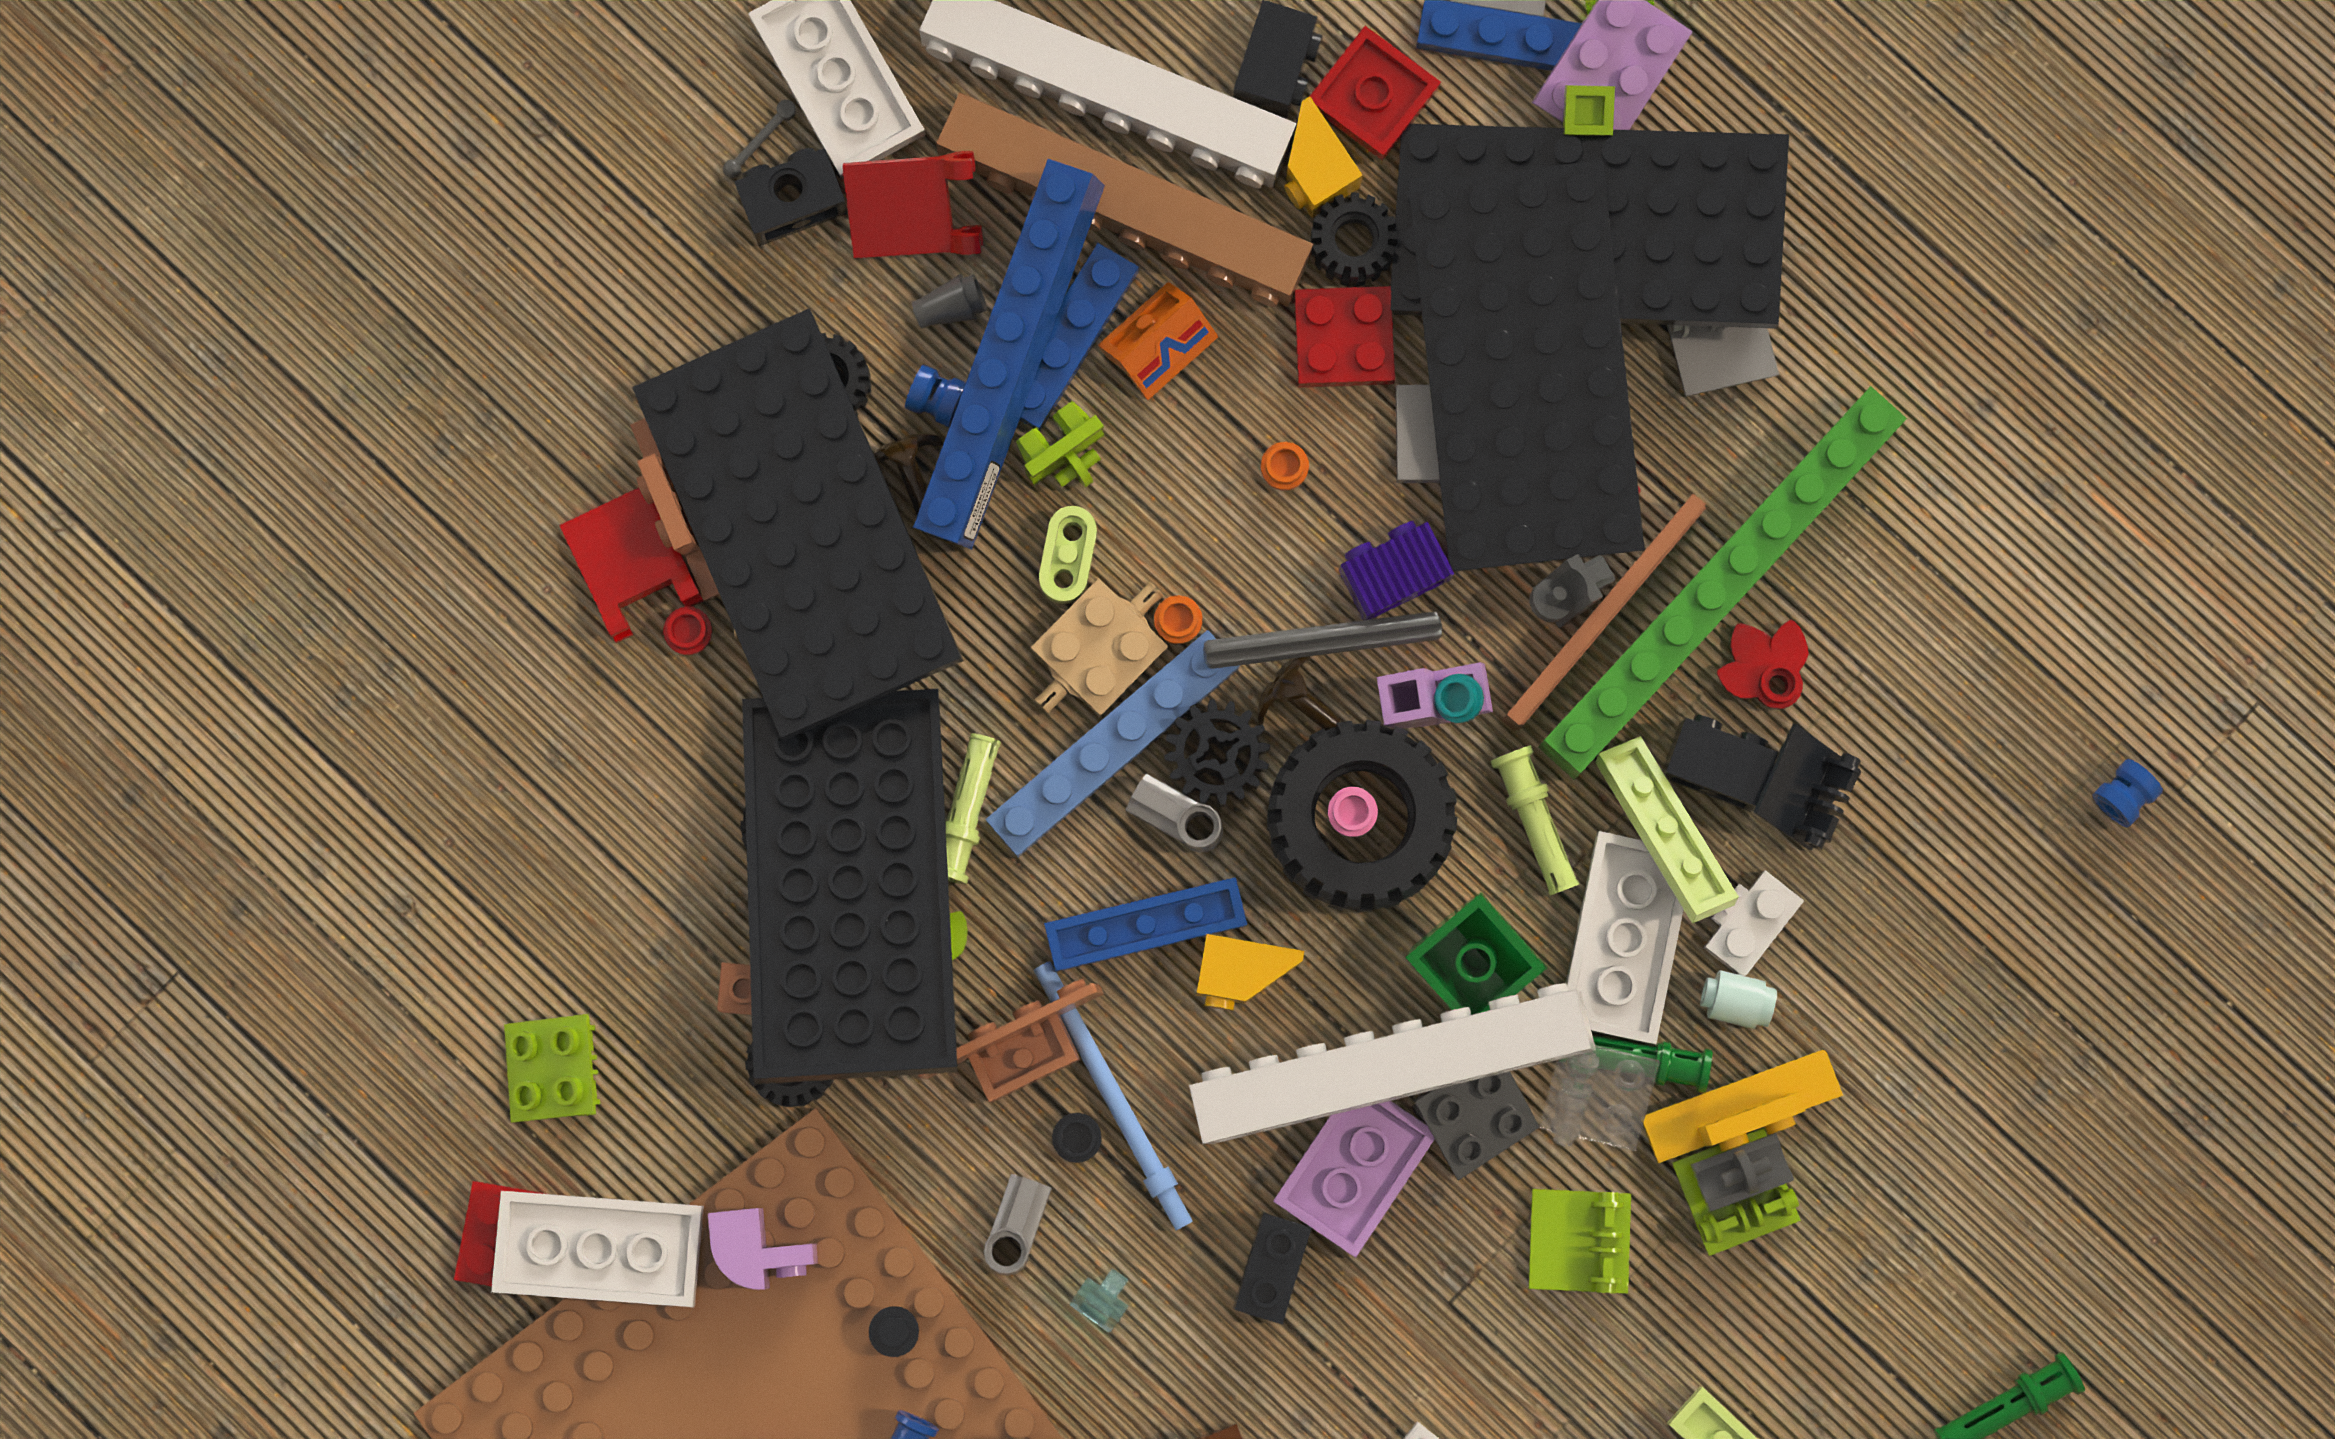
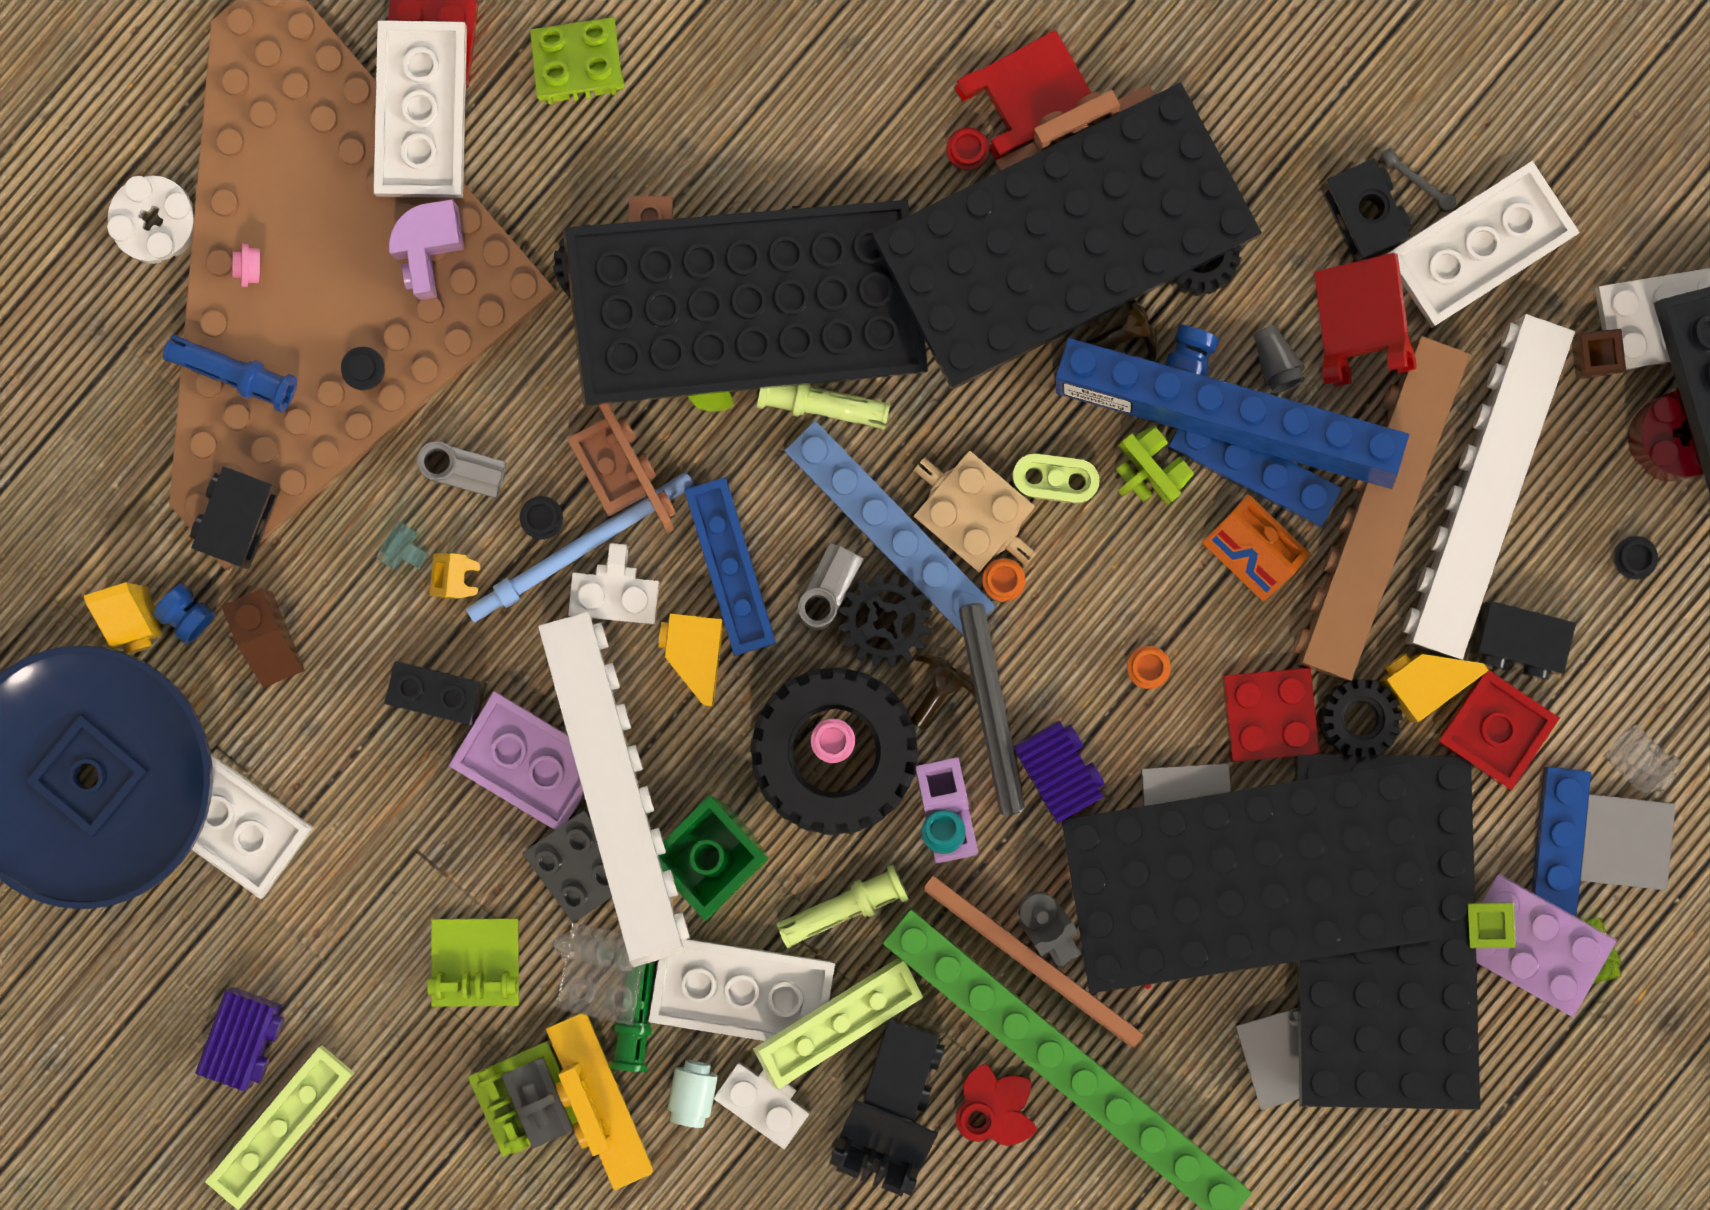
camera: 90 degrees right, 5 degrees up
(1138, 1246) = (448, 576): none -> yellow tile
(1166, 1058) = (615, 591): none -> white hinge

